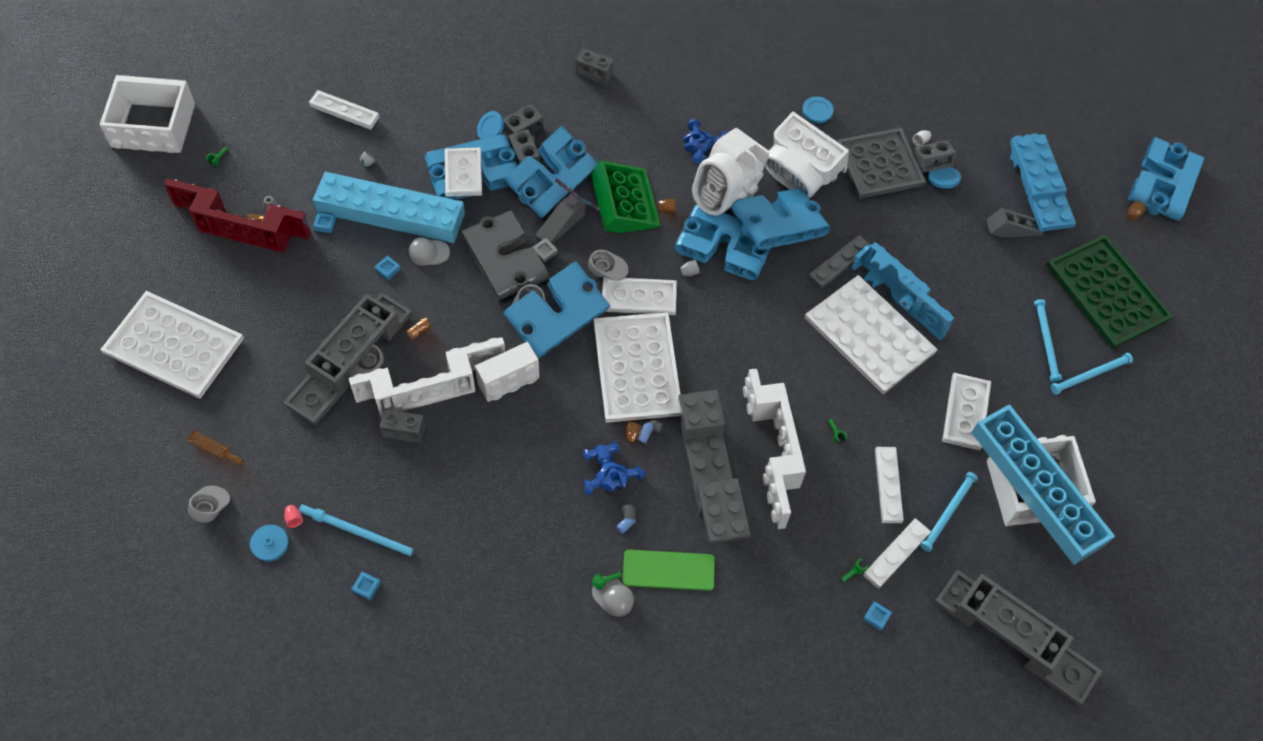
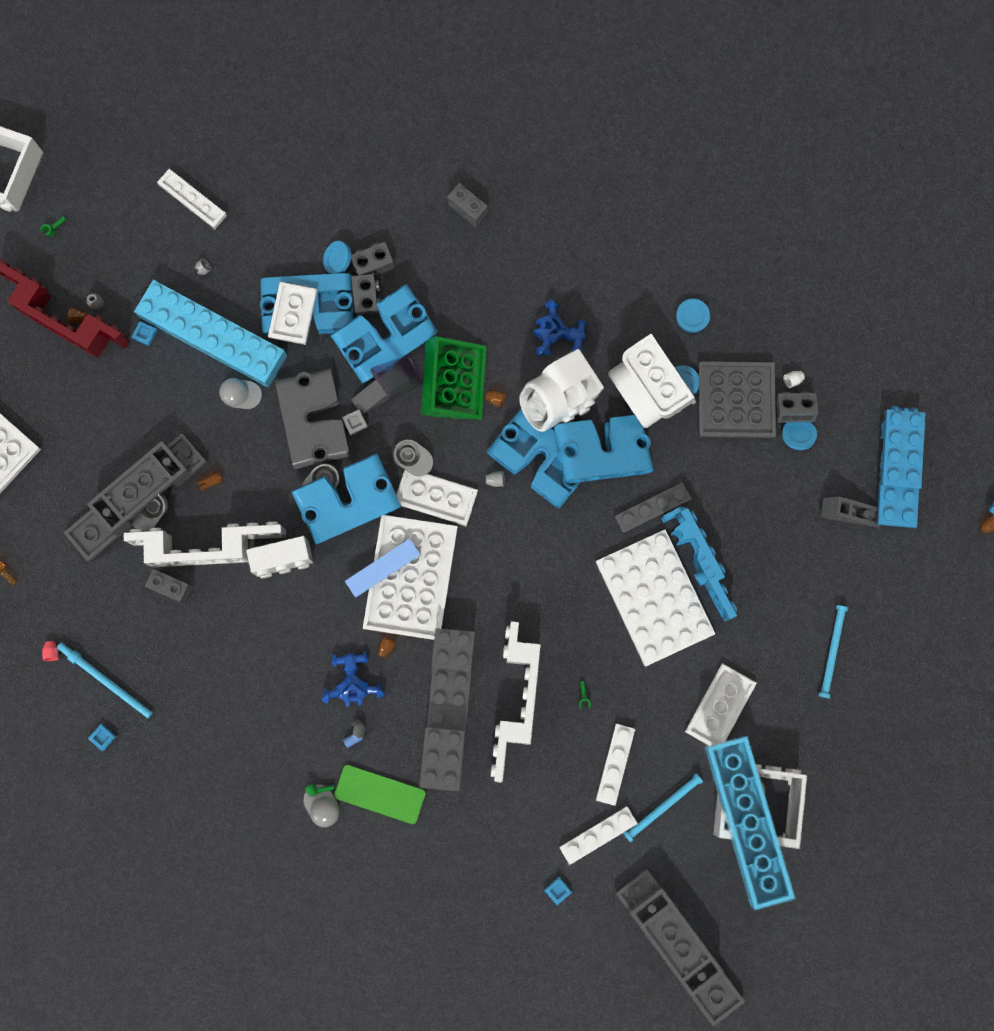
camera: 20 degrees right, 20 degrees up
(269, 542) = (25, 671): dark azure piece -> none
(387, 268) = (195, 402): dark azure tile -> none
(609, 361) = (382, 568): none -> light blue tile
(648, 428) = (401, 647): medium blue arm -> none
(856, 570) = (551, 842): green hand -> none
(1109, 291) = (920, 612): dark green plate -> none
(1125, 359) = (863, 699): medium azure bar -> none

